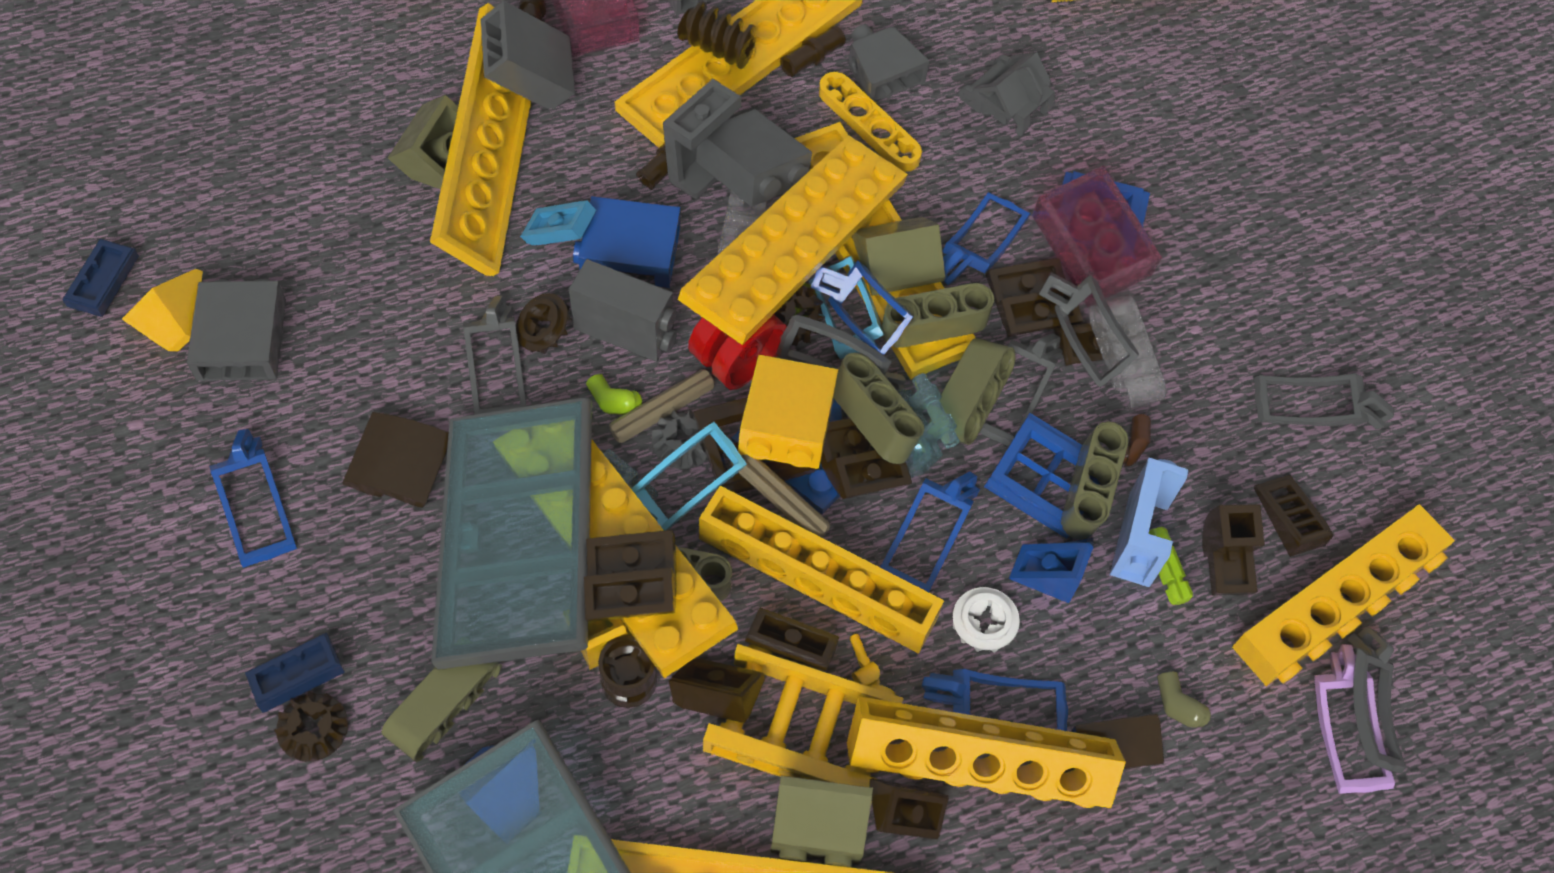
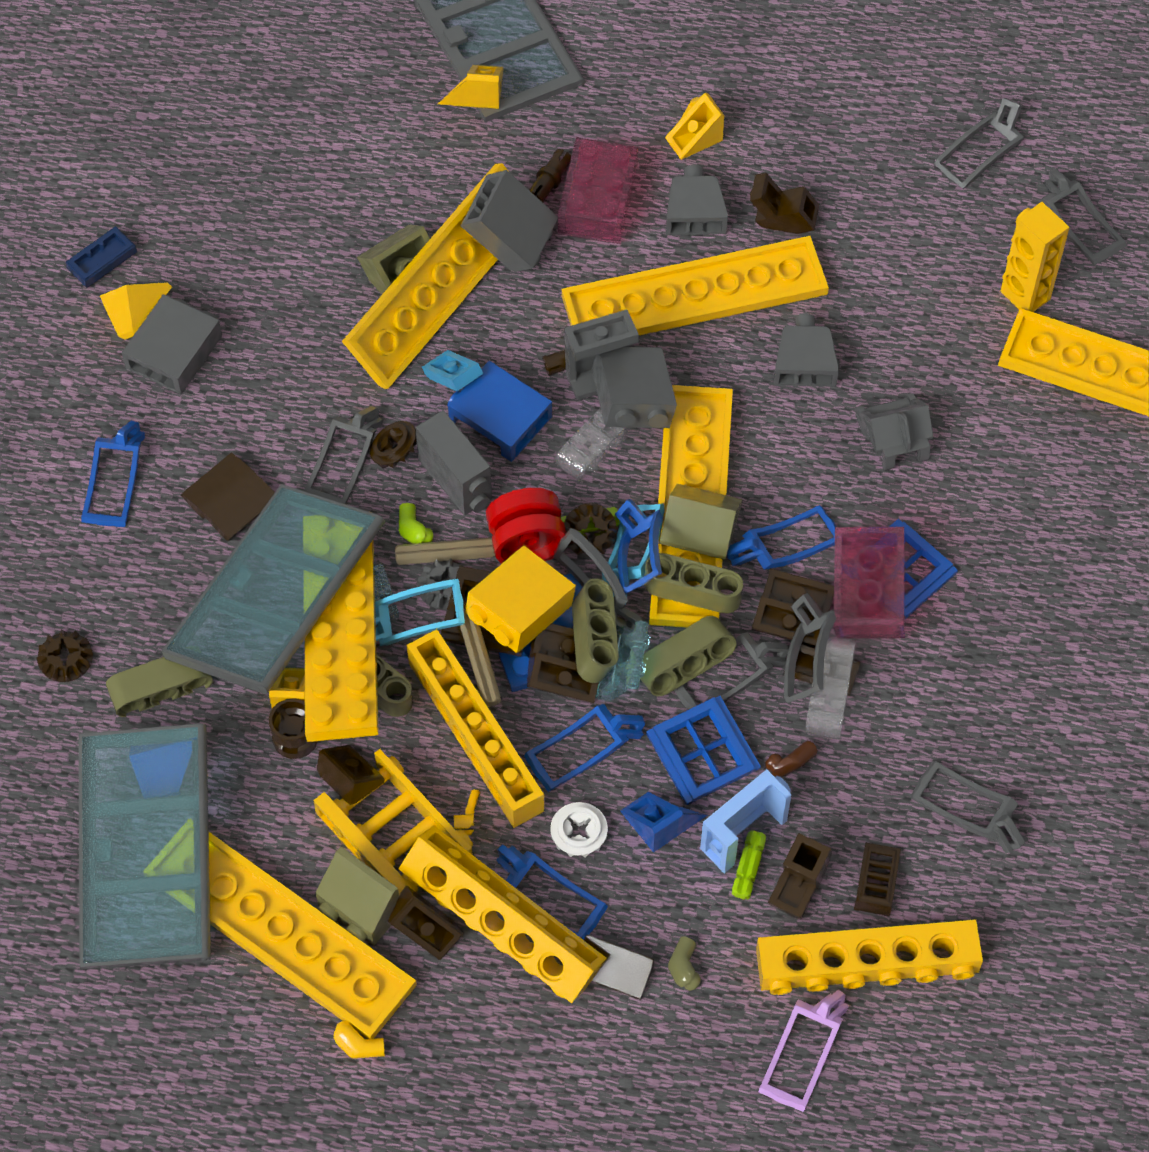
camera: 35 degrees right, 0 degrees up
(294, 672) = (73, 613): dark blue plate -> none
(630, 575) = (326, 658): dark brown slope -> none
(717, 34) = (675, 270): dark brown piece -> none
(792, 239) = (618, 467): yellow plate -> none
(792, 639) = (424, 768): dark brown slope -> none
(812, 51) = (755, 317): dark brown pin -> none
(874, 119) = (762, 400): yellow beam -> none
(1083, 492) = (734, 754): olive beam -> none
(1379, 657) = (857, 1015): dark grey sword -> none

